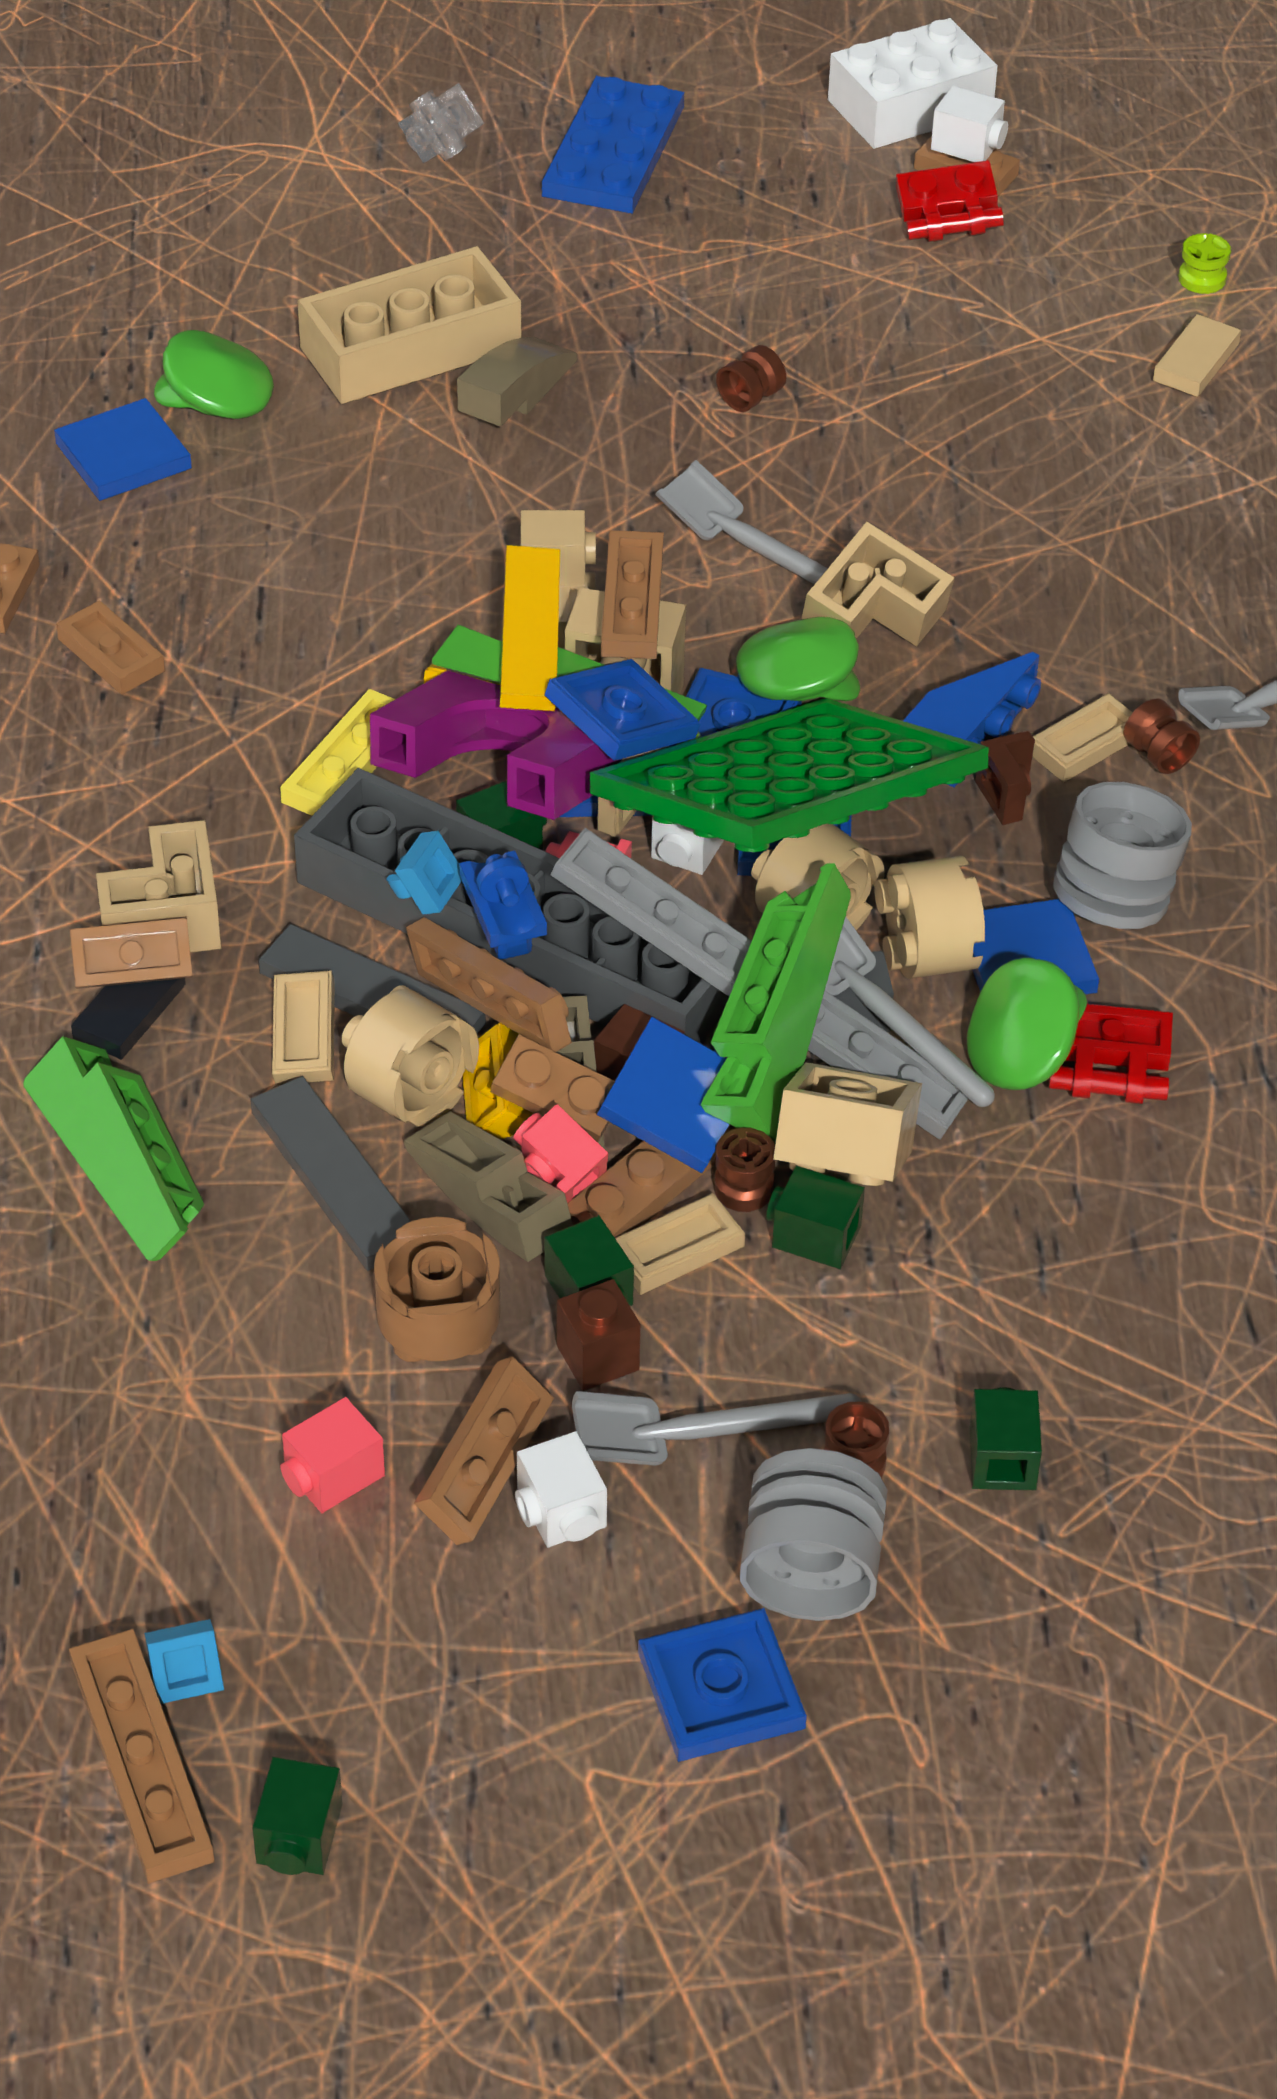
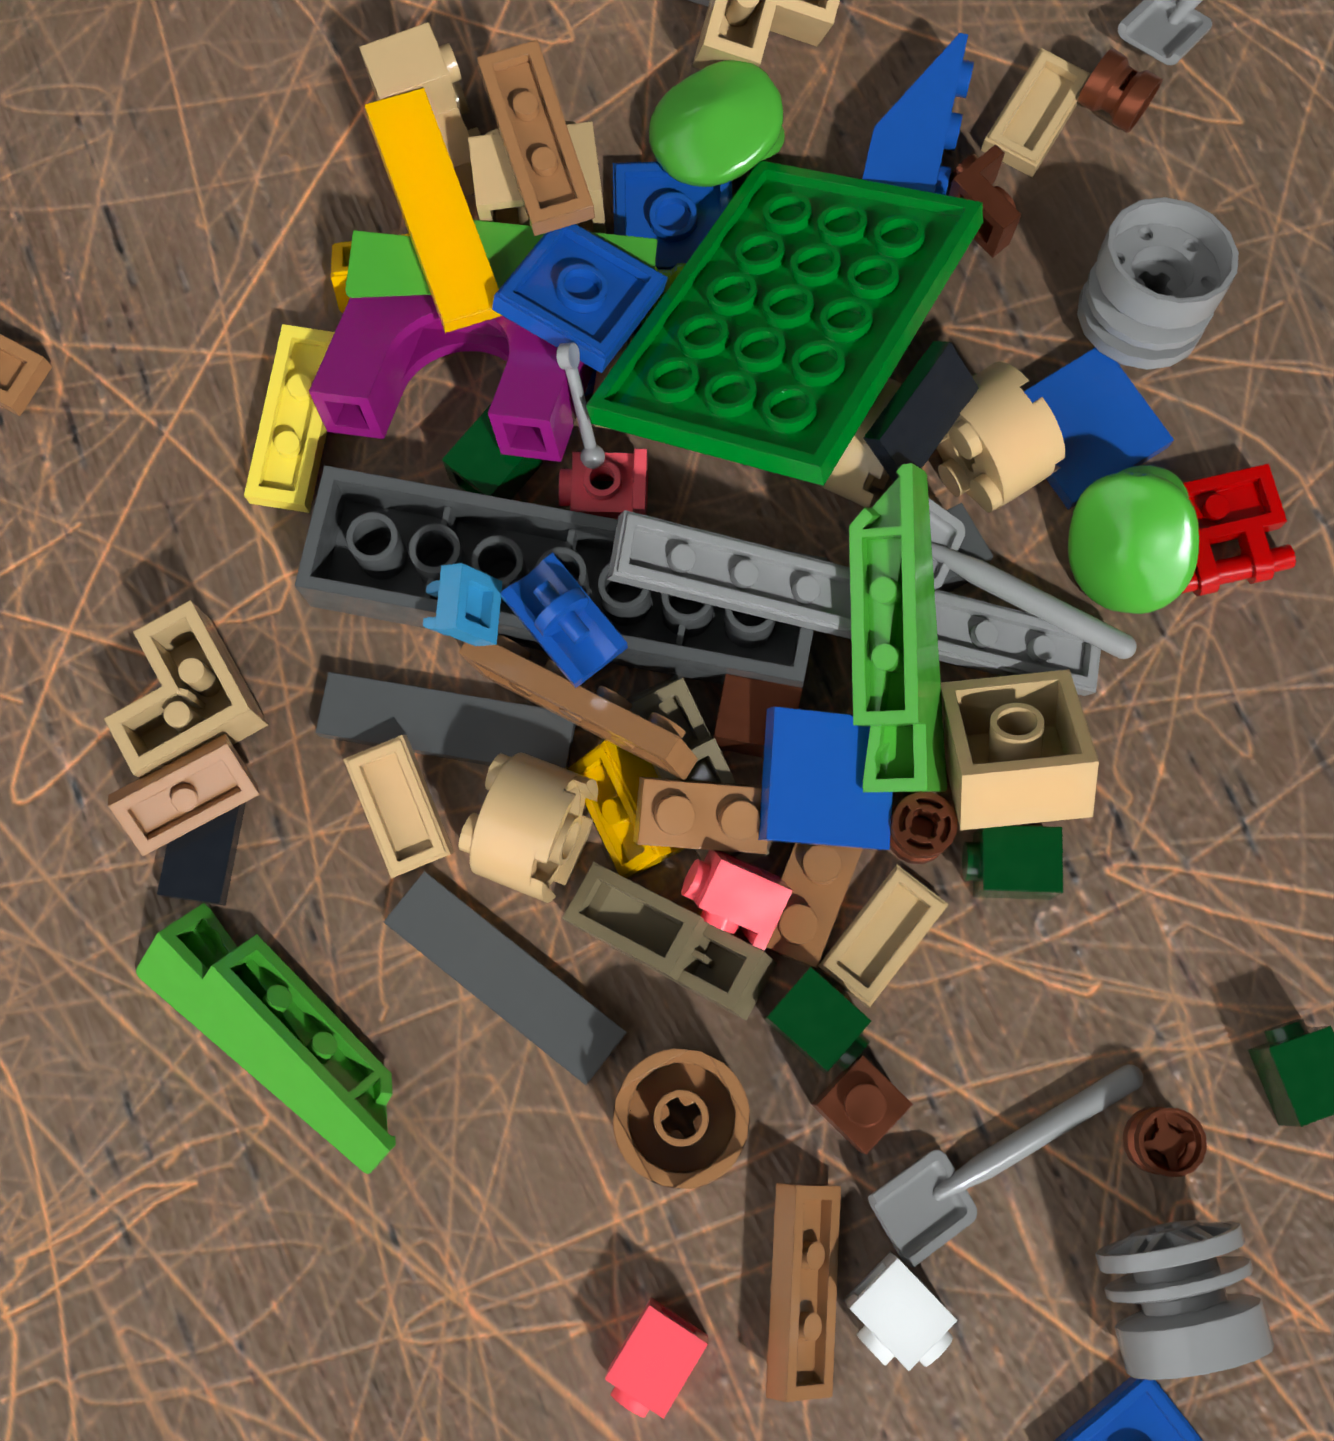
camera: 15 degrees left, 30 degrees up
(590, 737) = (568, 359): none -> light grey hinge
(869, 847) = (922, 409): none -> black tile

